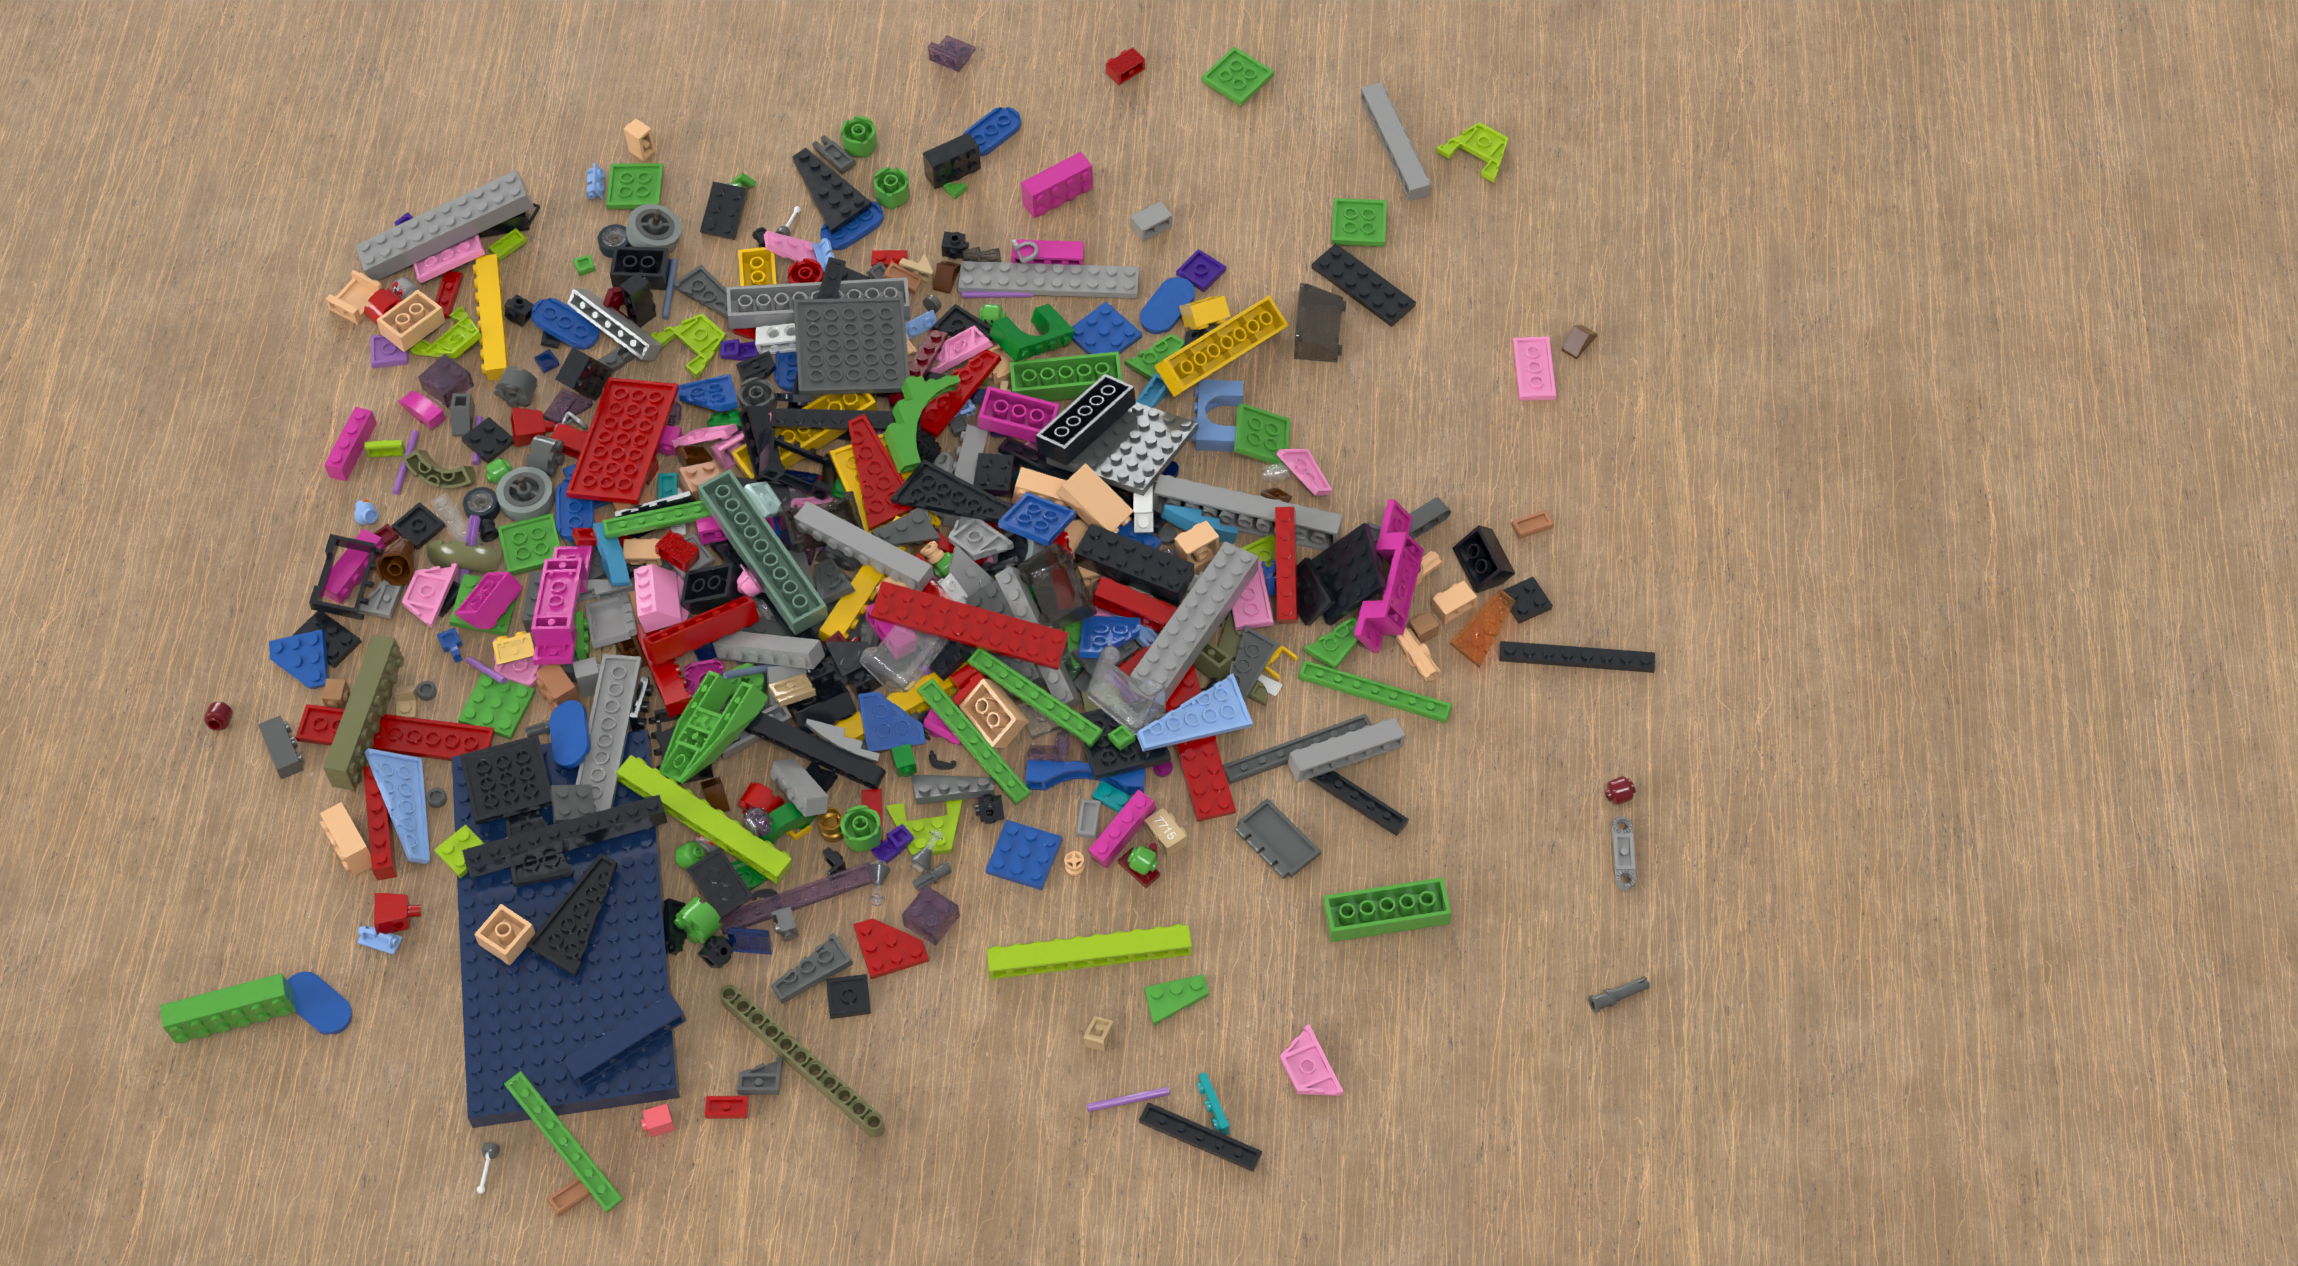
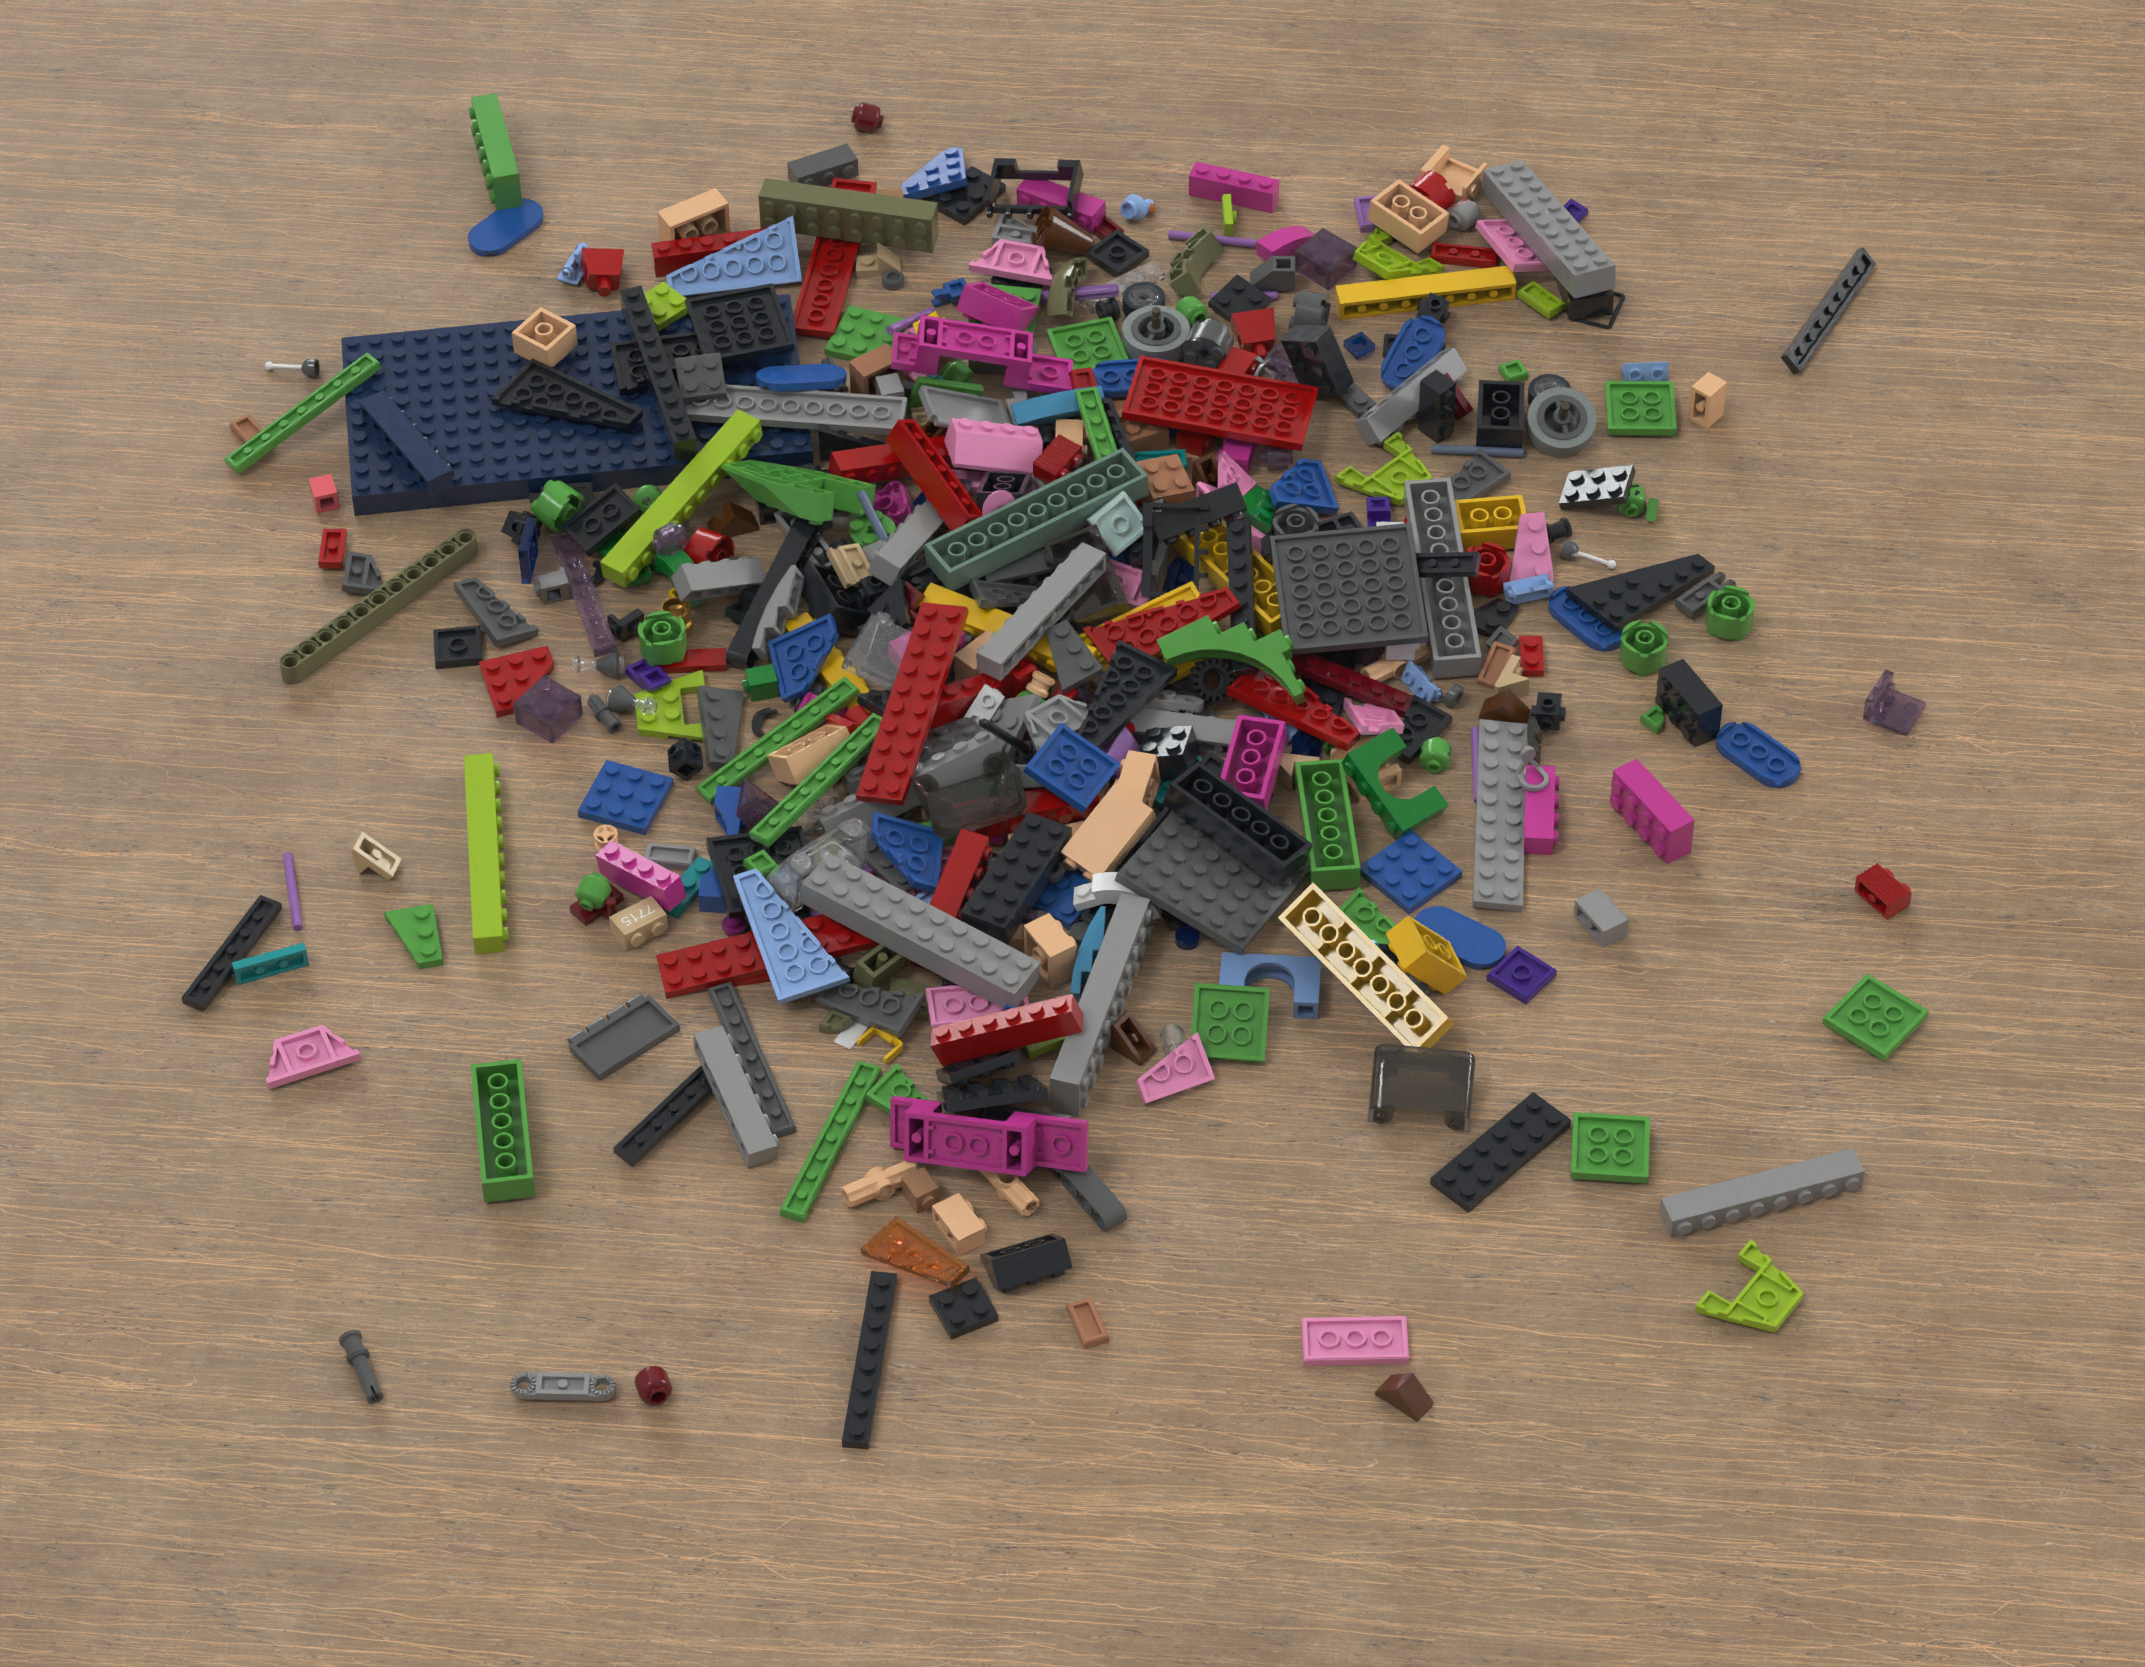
camera: 90 degrees right, 10 degrees down
(538, 69) = (1828, 310): none -> black plate

